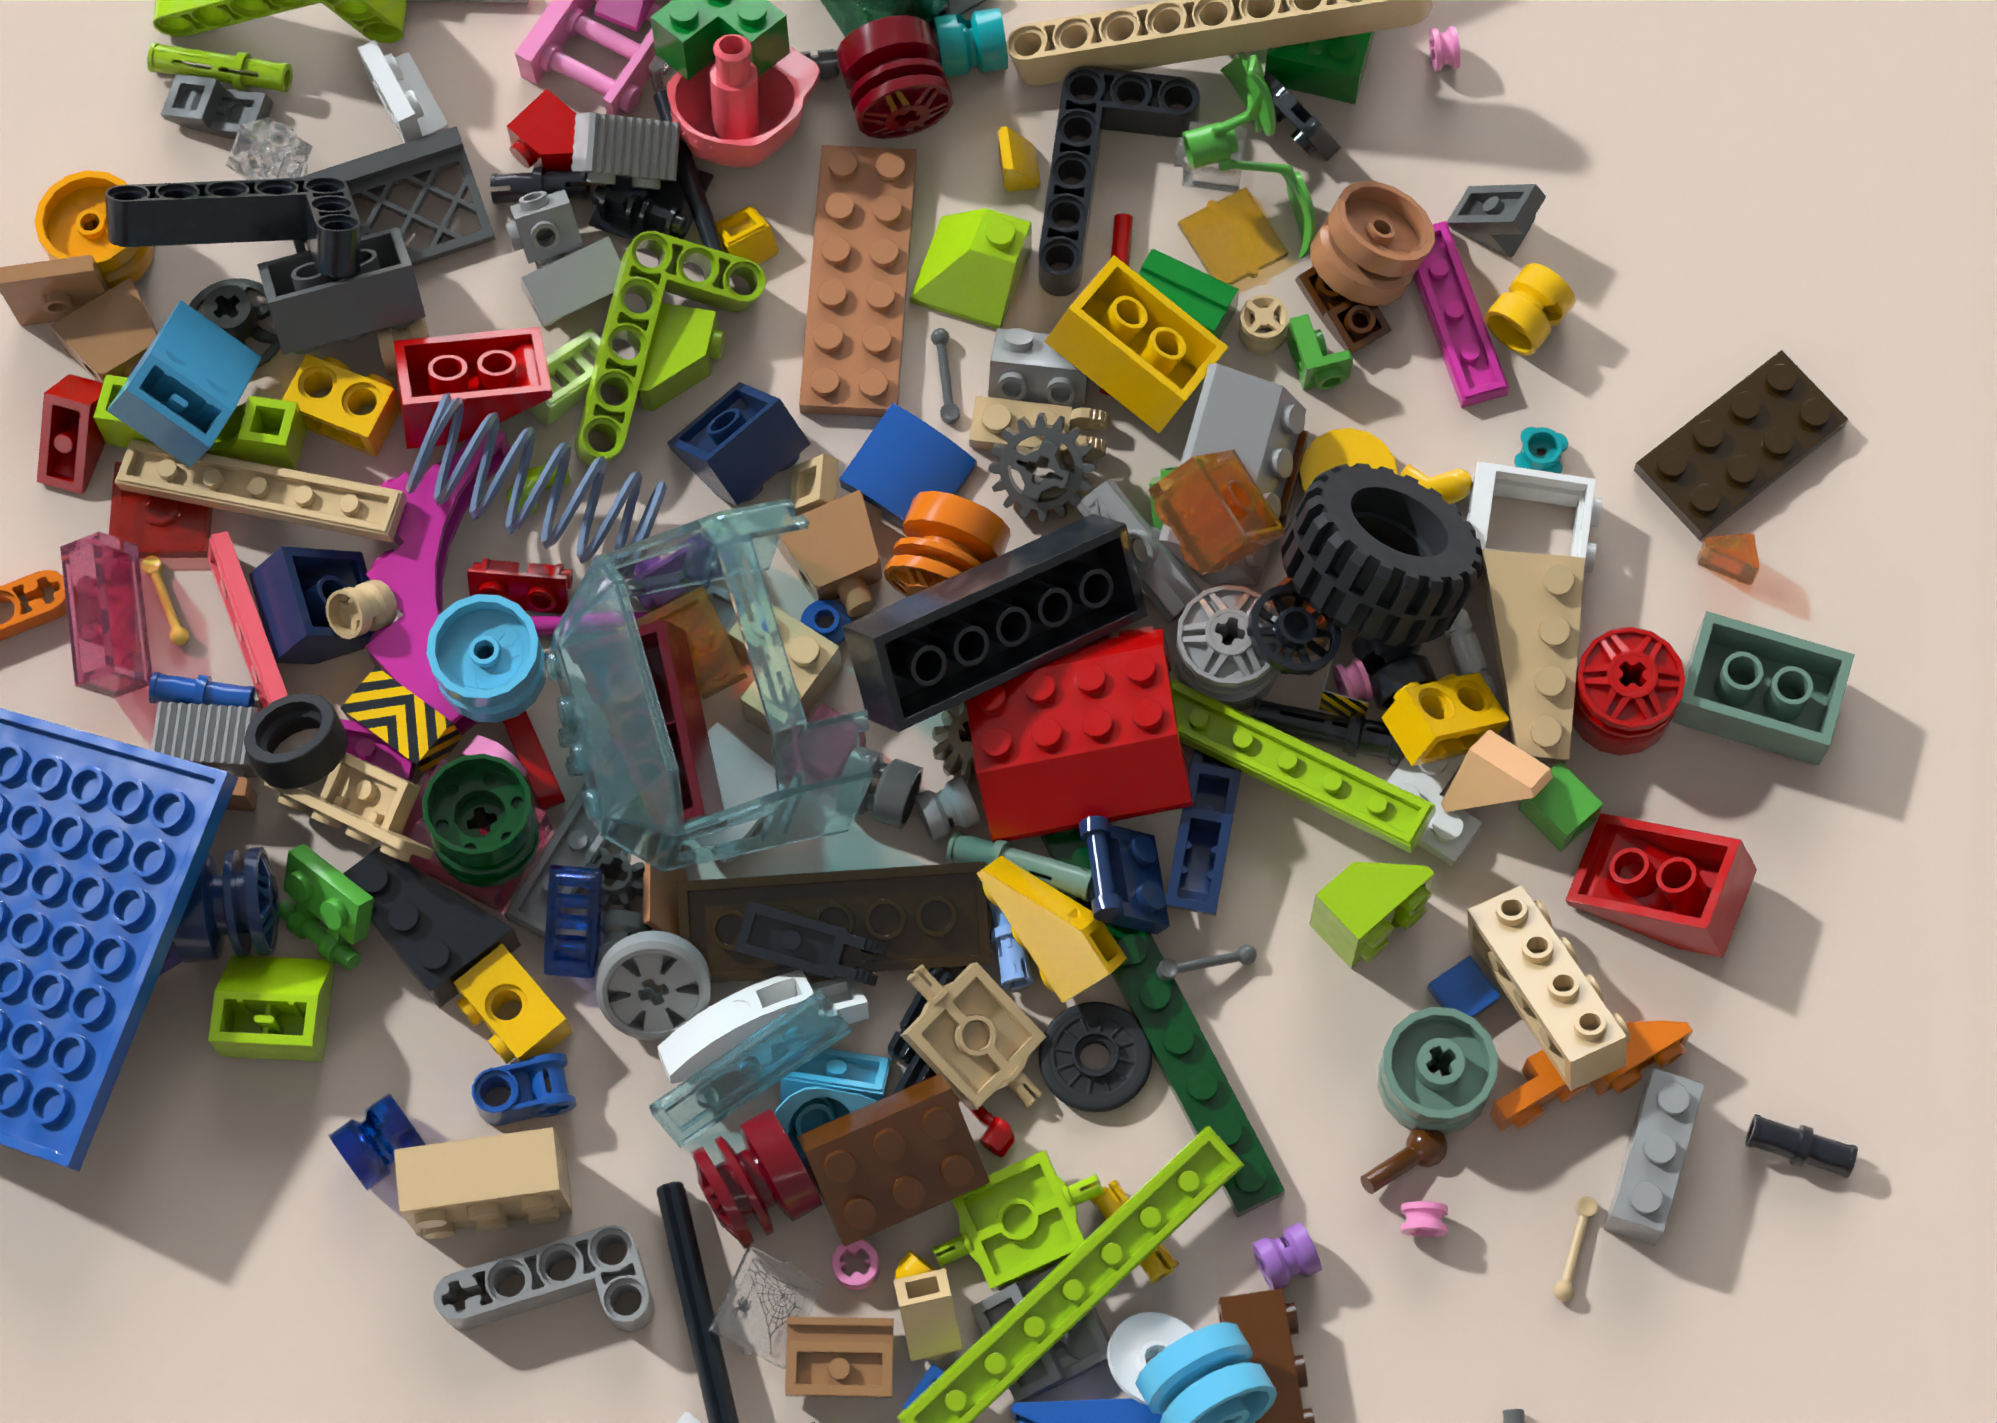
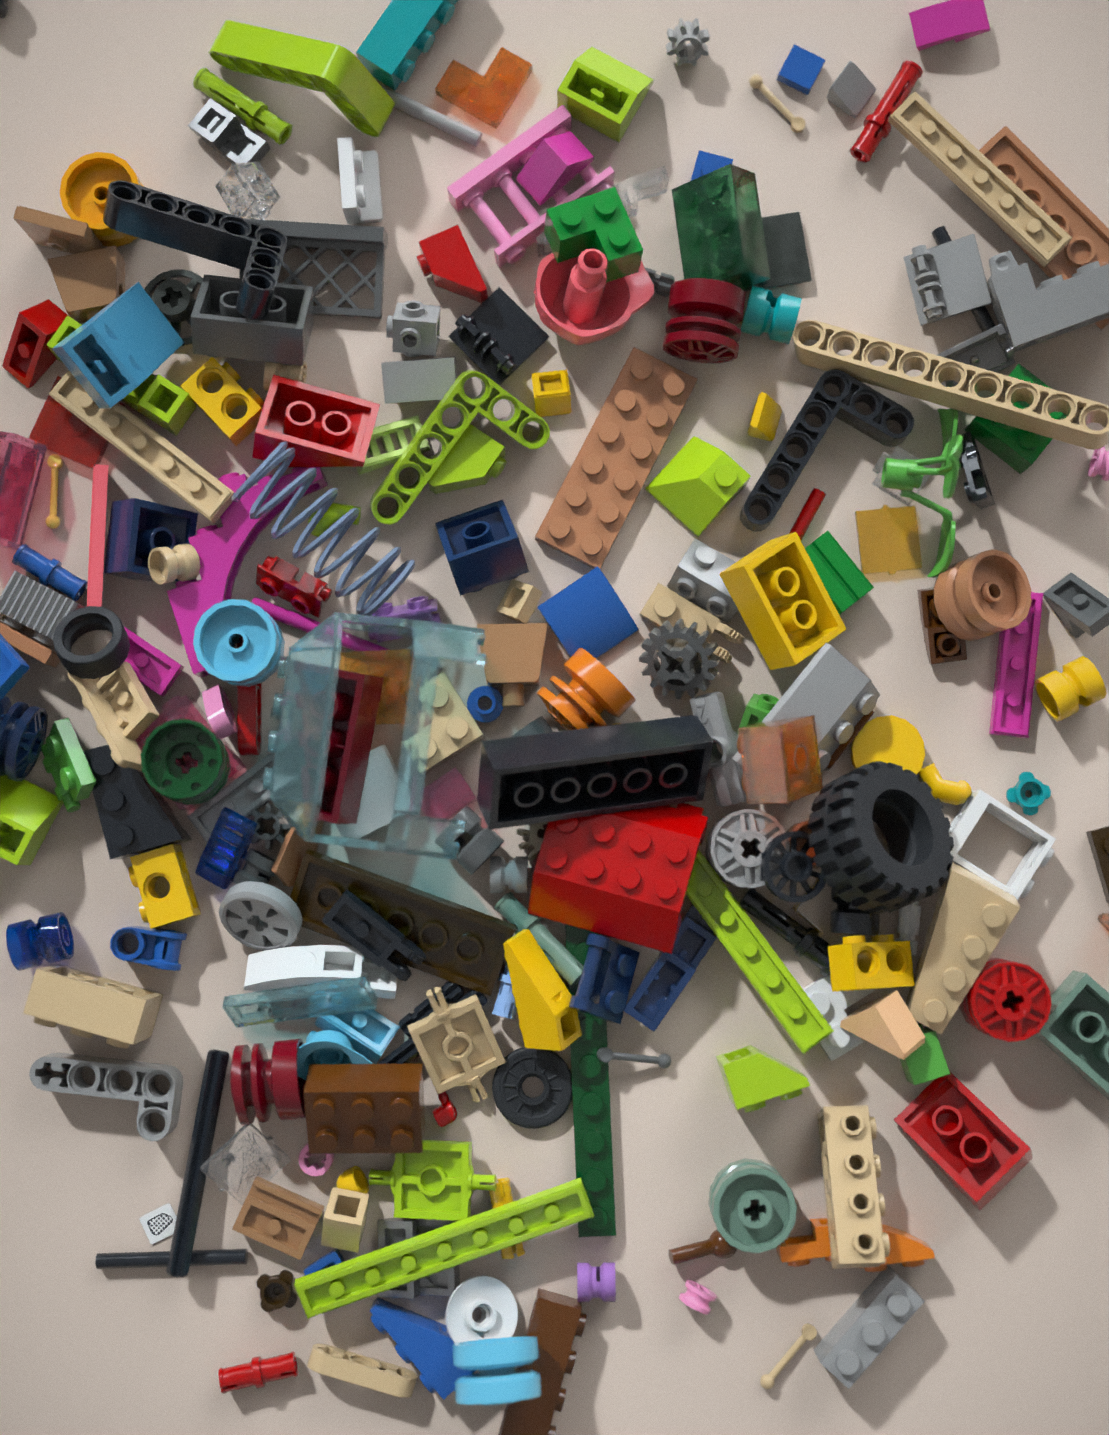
camera: 25 degrees right, 15 degrees up
(402, 720) = (169, 653): sticker -> none
(538, 180) = (426, 293): black pin -> none
(625, 148) = (491, 297): light grey brick -> none
(691, 183) = (530, 340): black bar -> none
(949, 412) = (636, 583): dark grey hinge -> none
(1263, 312) = (886, 612): tan wheel -> none
(1311, 358) = (902, 650): bright green bracket -> none
(1353, 680) = (822, 906): bright pink bush -> none
(1464, 989) = (796, 1152): blue tile -> none
(1801, 1146) = (970, 1359): black pin -> none

